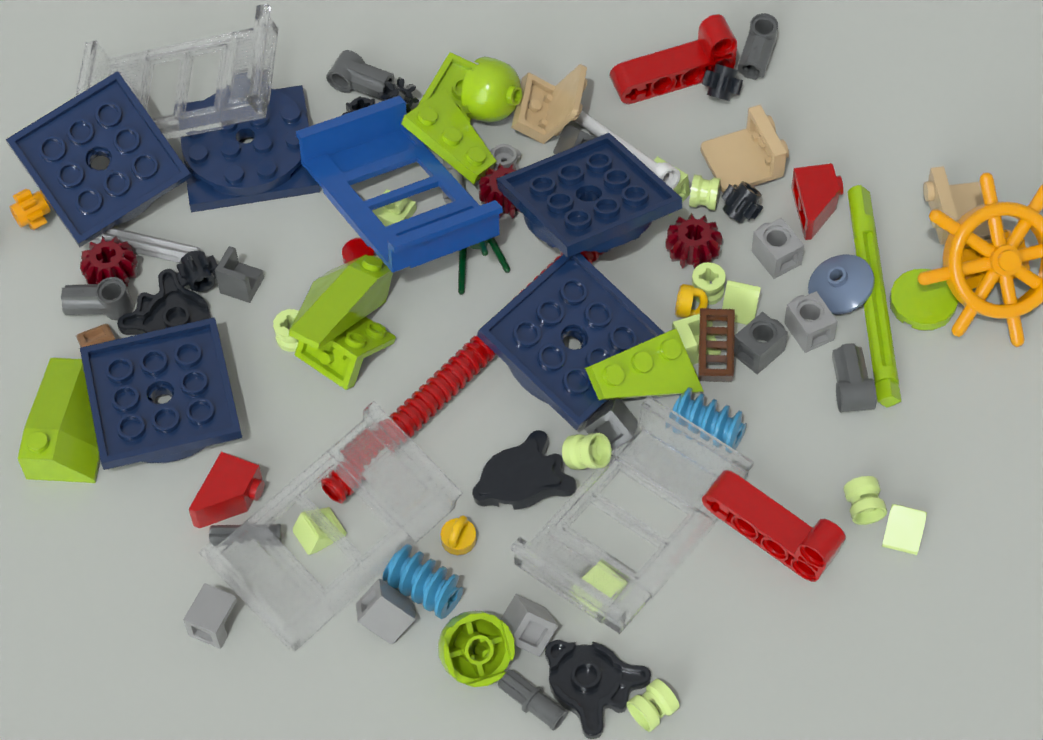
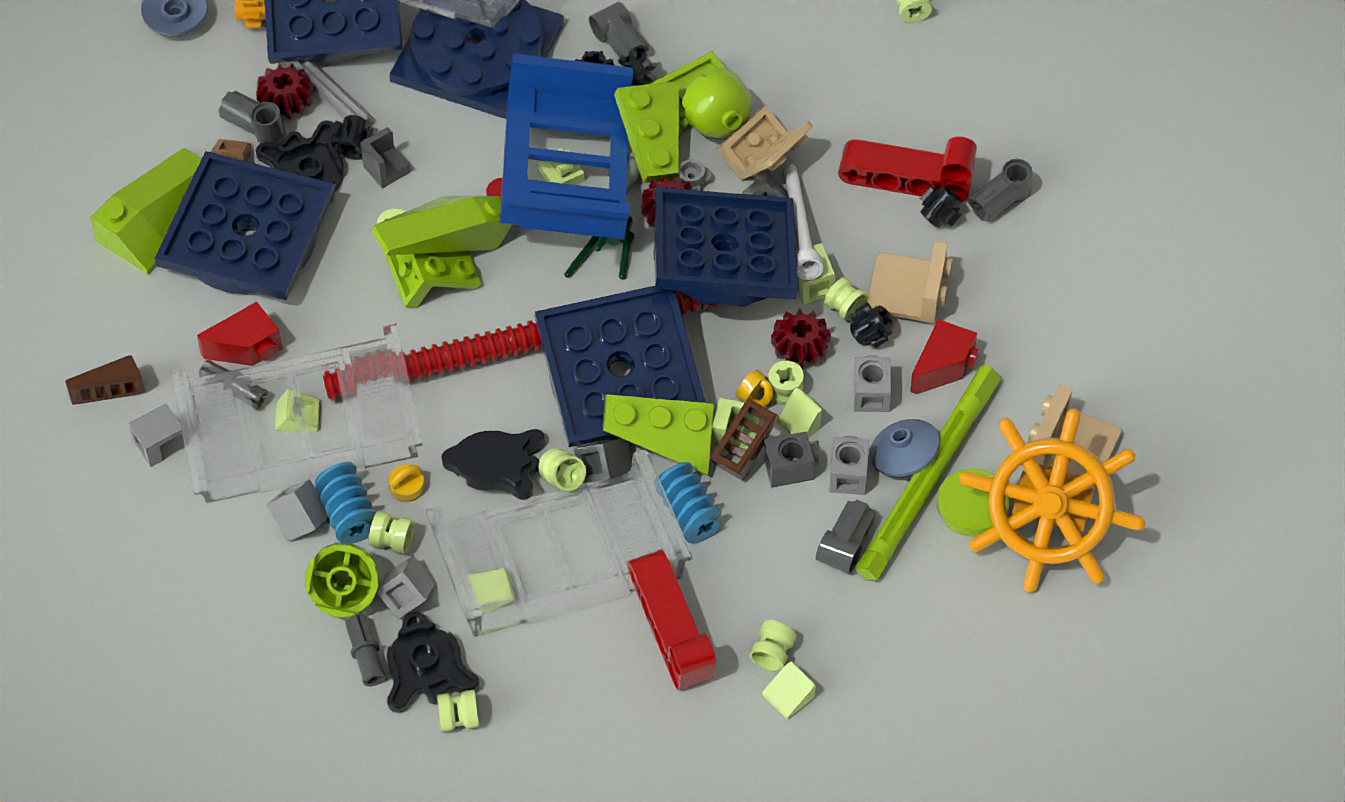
camera: 30 degrees right, 0 degrees up
(133, 593) = (106, 382): none -> reddish brown slope
(489, 583) = (391, 532): none -> yellowish green wheel

